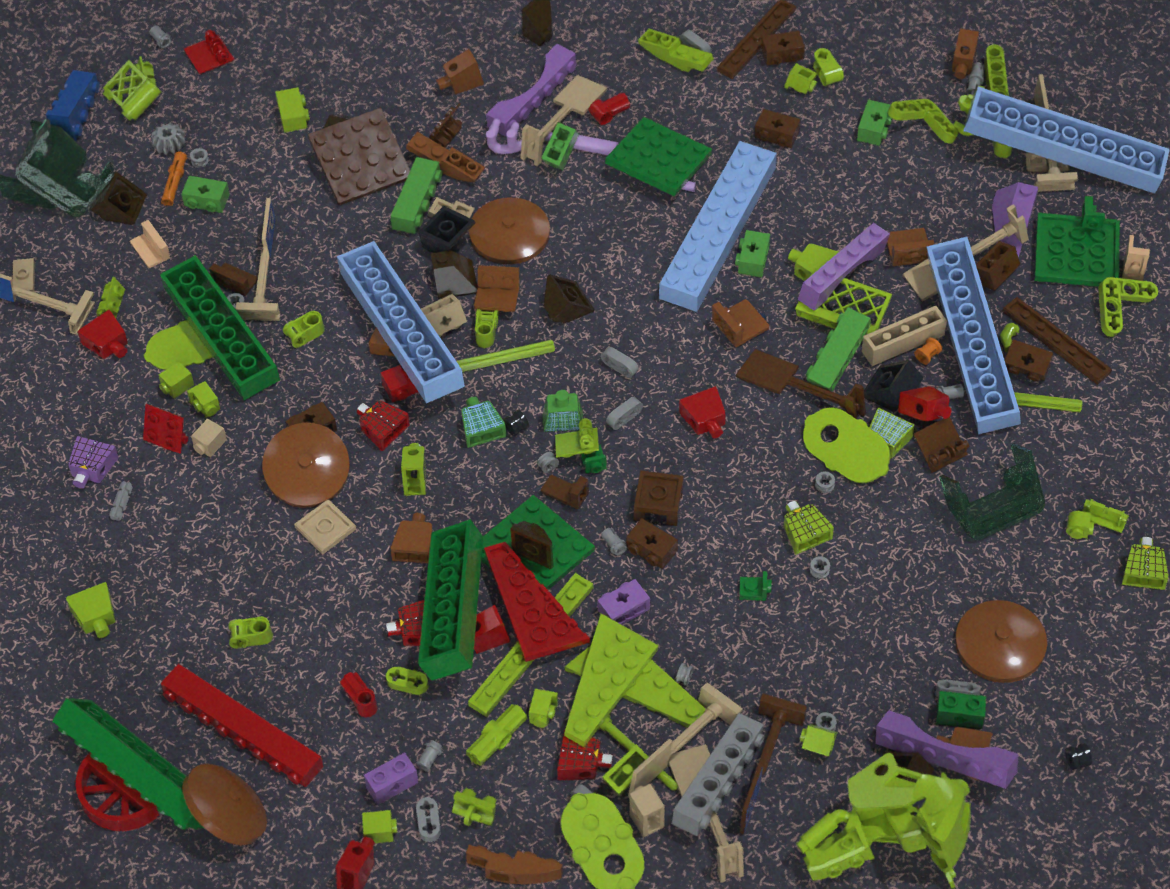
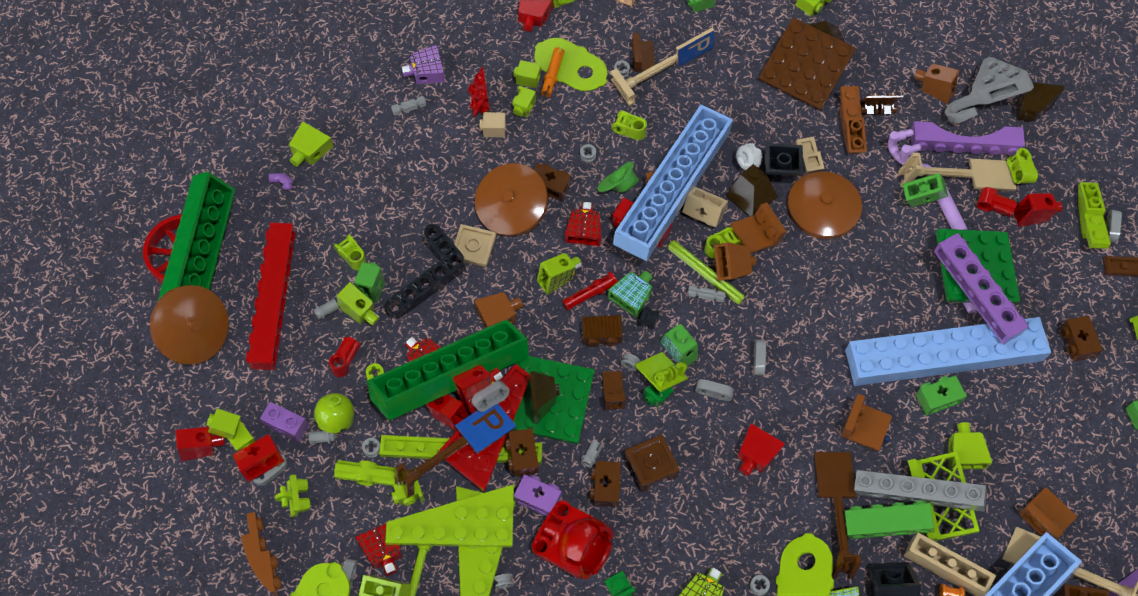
camera: 55 degrees right, 10 degrees up
(117, 651) = (281, 178): none -> medium lavender arm
(196, 364) = (550, 78): none -> orange pin
(220, 327) = (588, 72): green brick -> none
(293, 689) = (326, 309): none -> light grey pin
(300, 627) = (370, 281): none -> bright green brick
(304, 385) = (588, 147): none -> light grey bush
(315, 652) = (357, 305): none -> lime torso
(337, 574) = (430, 276): none -> black beam
(355, 368) = (620, 180): none -> bright green piece
(361, 821) = (223, 423): none -> lime brick
(414, 815) = (258, 458): none -> red brick
(415, 728) = (334, 413): none -> lime cylinder
(416, 195) = (802, 121): bright green brick -> none
(416, 256) = (749, 155): none -> white hair
(452, 447) = (598, 287): none -> red pin
(469, 713) = (366, 444): none -> light grey bush
(487, 585) = (473, 381): none -> red torso
(494, 39) = (988, 79): none -> light grey piece
(499, 466) = (602, 330): none -> reddish brown brick
(505, 579) = (490, 396): none -> light grey beam
(514, 325) = (733, 261): none -> dark orange torso
(525, 368) = (706, 293): none -> light grey axle
(530, 607) = (478, 431): none -> piece
(565, 300) = (788, 283): dark brown slope -> none
(576, 588) = (525, 441): none -> reddish brown brick
(590, 68) = (1022, 168): none -> lime piece
(640, 76) = (1036, 209): none -> red torso
(686, 160) = (981, 298): none -> medium lavender brick
(687, 594) = (573, 541): none -> red piece
(825, 314) = (921, 489): none -> light grey brick
(827, 278) = (951, 468): medium lavender arch -> none

